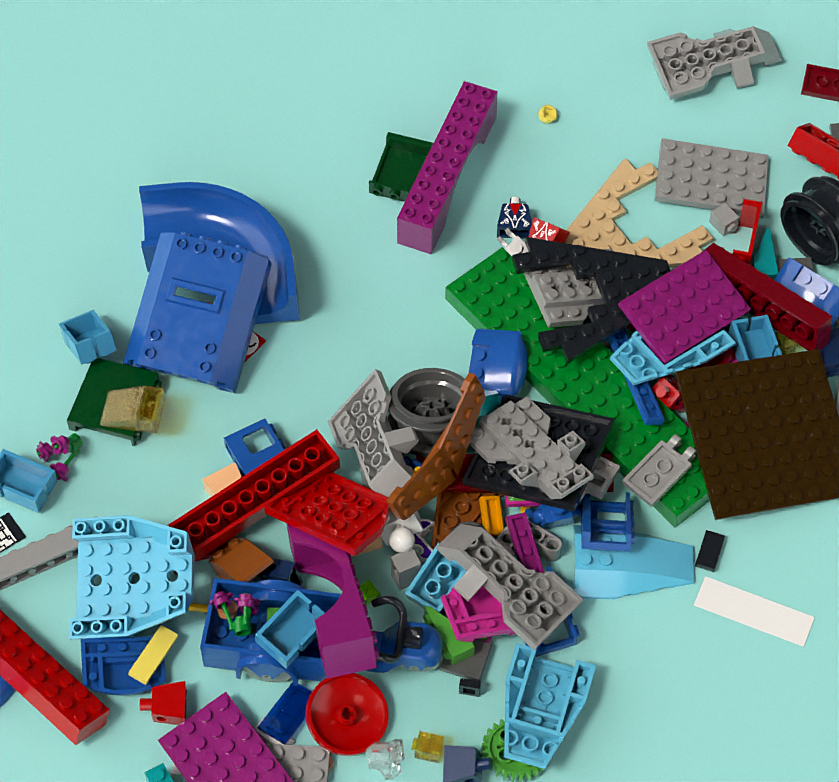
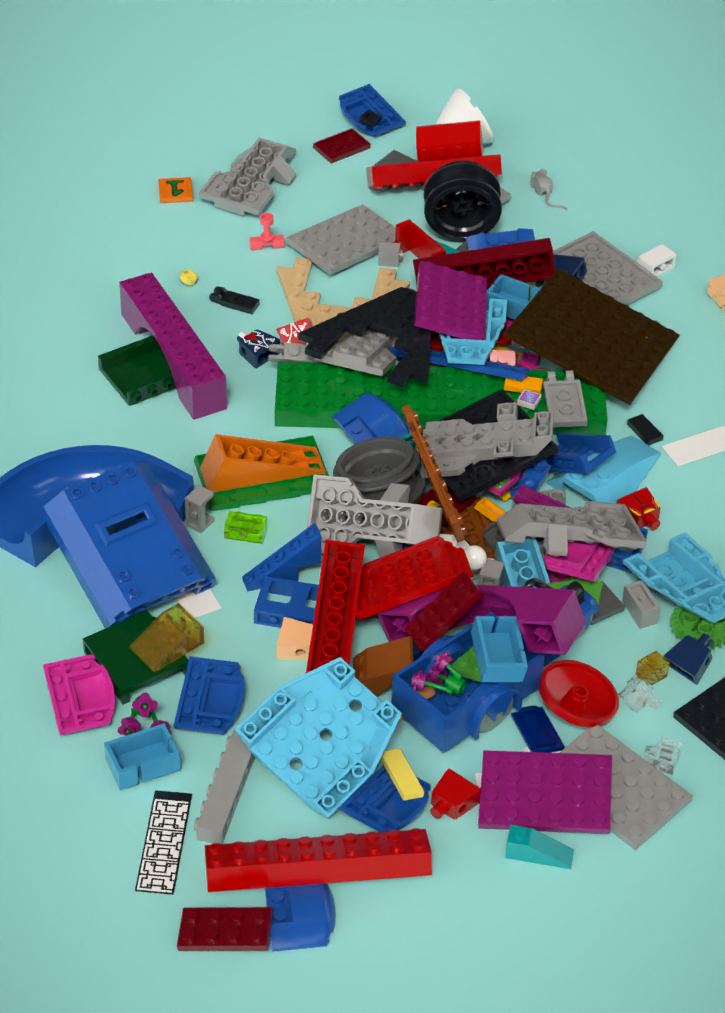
camera: 50 degrees left, 15 degrees down
(44, 397) = (80, 694): none -> dark pink slope
(87, 337) = (62, 627): dark azure piece -> none
(117, 476) = (210, 696): none -> blue slope
(210, 398) = (200, 603): none -> white sticker
(291, 420) = (284, 563): none -> blue slope
(292, 323) = (195, 509): none -> light grey panel
(307, 563) = (444, 611): none -> dark red plate
(310, 366) = (245, 527): none -> clear neon green brick
(381, 330) = (258, 470): none -> orange piece
(469, 687) = (625, 615): black tile -> none
(490, 689) = (641, 604): none -> light grey panel
(556, 164) = (234, 300): none -> black hinge
(604, 614) = (643, 508): none -> red torso
(635, 445) = (529, 399): none -> tile
(643, 23) = (175, 190): none -> orange tile
(648, 125) = (267, 238): none -> coral bar
(651, 433) = (529, 383): none -> light orange tile

